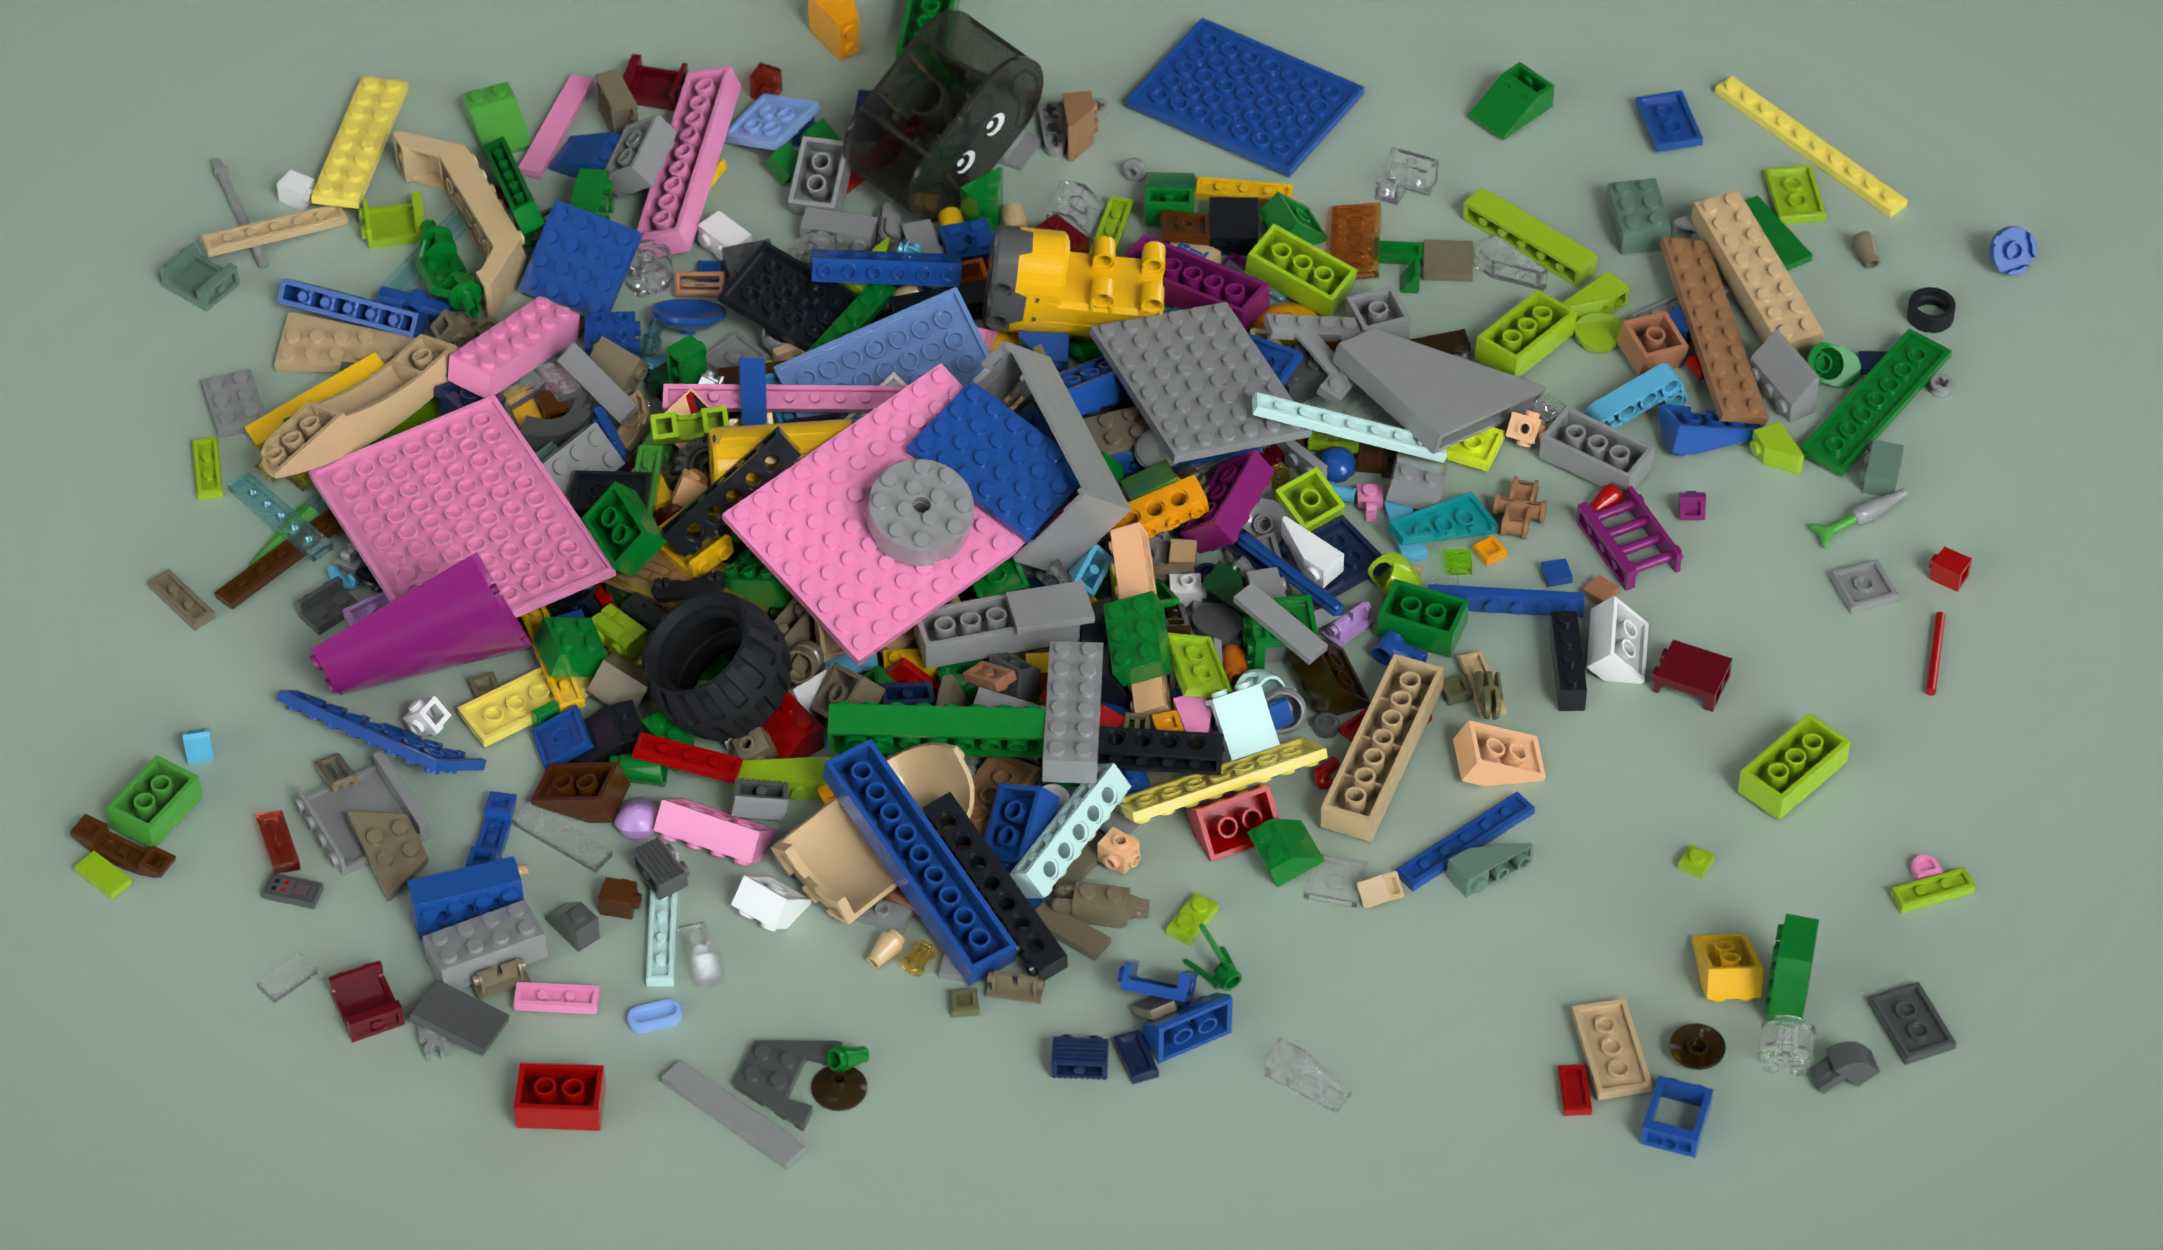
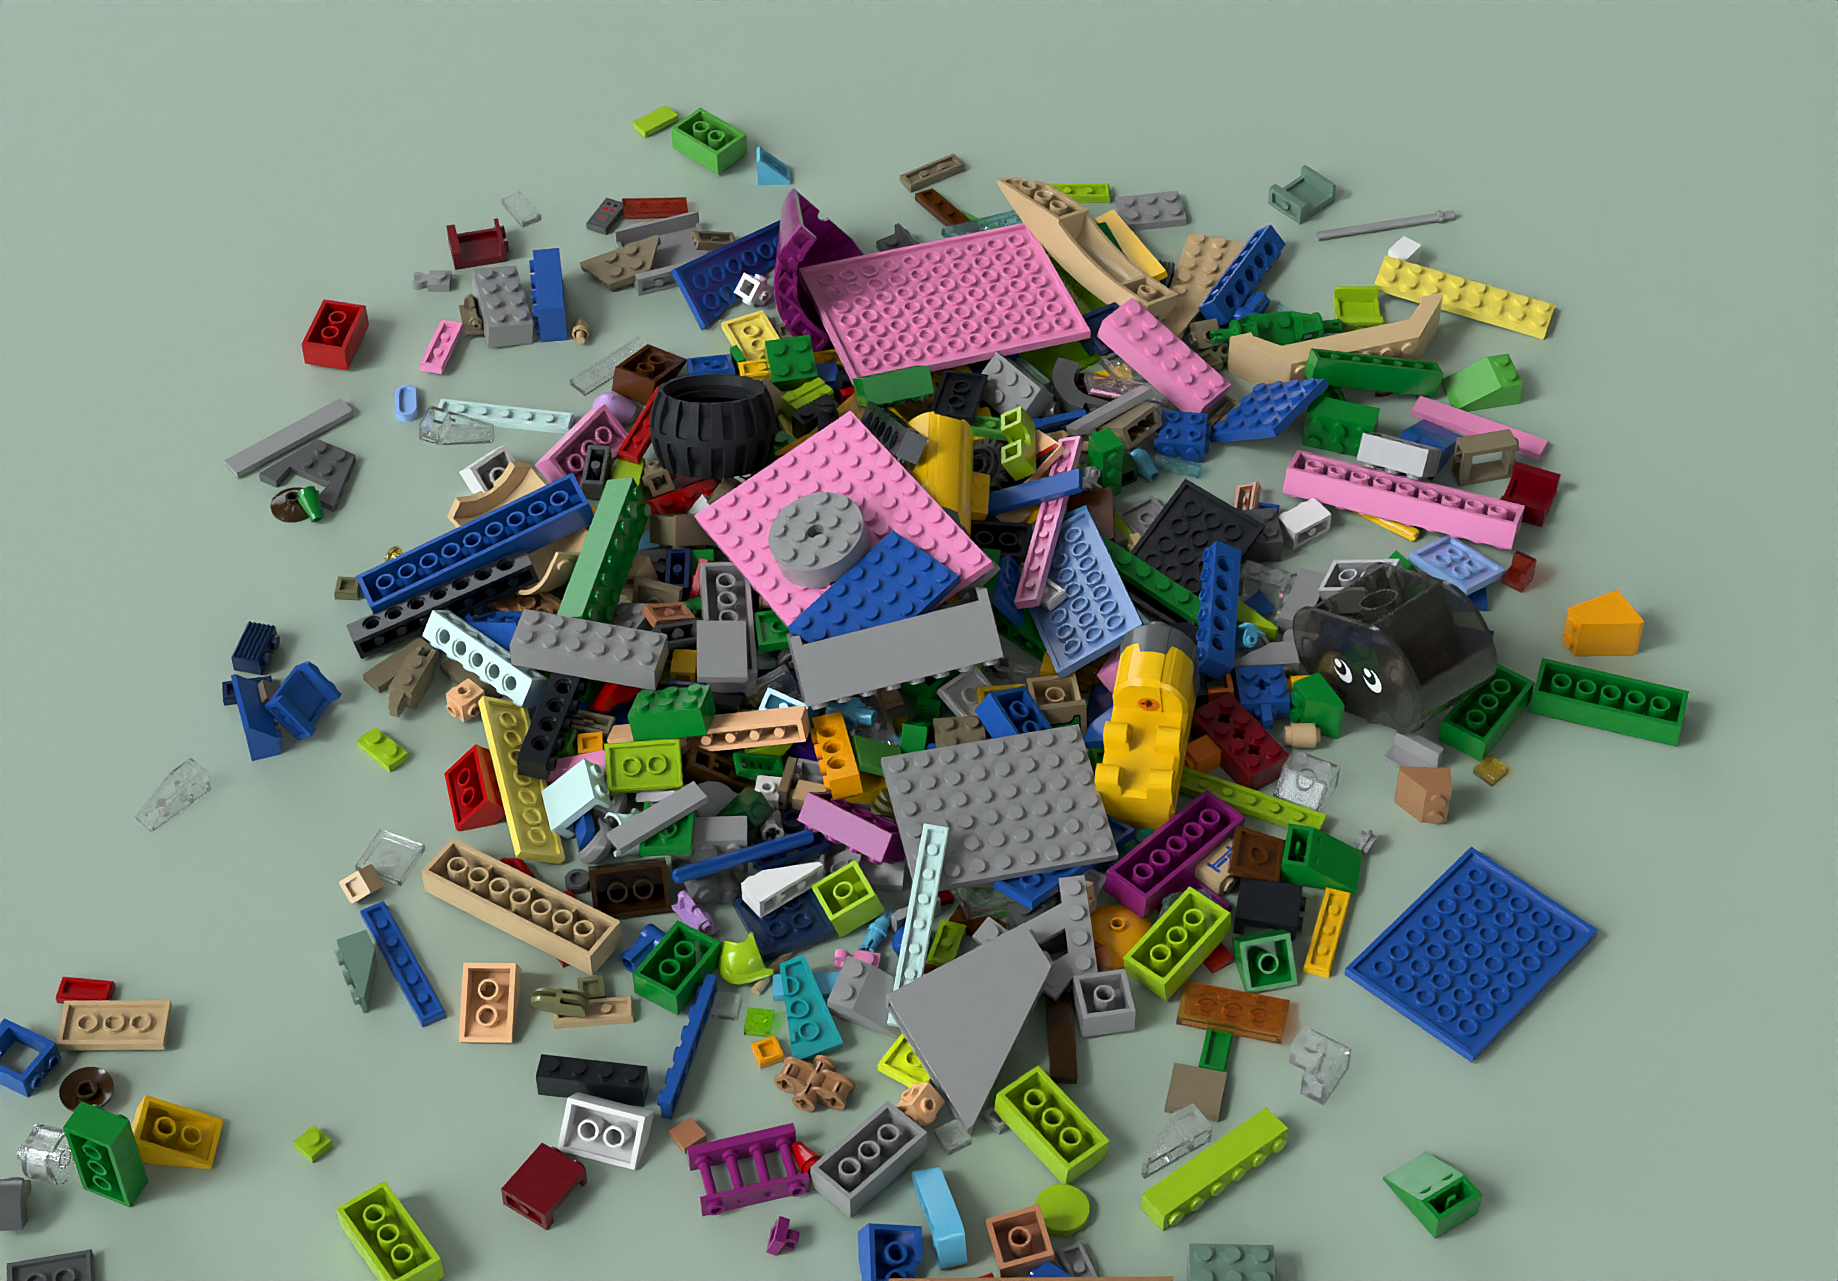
camera: 100 degrees right, 0 degrees up
(119, 851) = (662, 140): reddish brown slope -> none
(273, 230) = (1352, 236): tan tile -> none
(459, 1017) = (437, 289): dark grey tile -> none
(494, 830) = (618, 324): blue slope -> none
(575, 924) = (512, 360): dark grey slope -> none
(619, 898) = (529, 387): reddish brown brick -> none
(650, 269) = (1265, 462): clear brick -> none
(660, 868) = (544, 407): dark grey brick -> none
(688, 314) = (1200, 471): blue dish -> none
(886, 947) = (416, 538): tan cone -> none
(1018, 988) = (352, 612): dark tan hinge -> none
(1055, 109) = (1464, 797): light grey beam -> none
(1225, 972) = (307, 757): green plant -> none
(1282, 471) = (904, 889): clear yellow bush -> none
(1285, 848) = (426, 814): green slope -> none
(1410, 278) = (1169, 1053): green slope -> none
(1556, 572) = (722, 1102): blue tile -> none
(1603, 295) = (1109, 1217): lime slope -> none

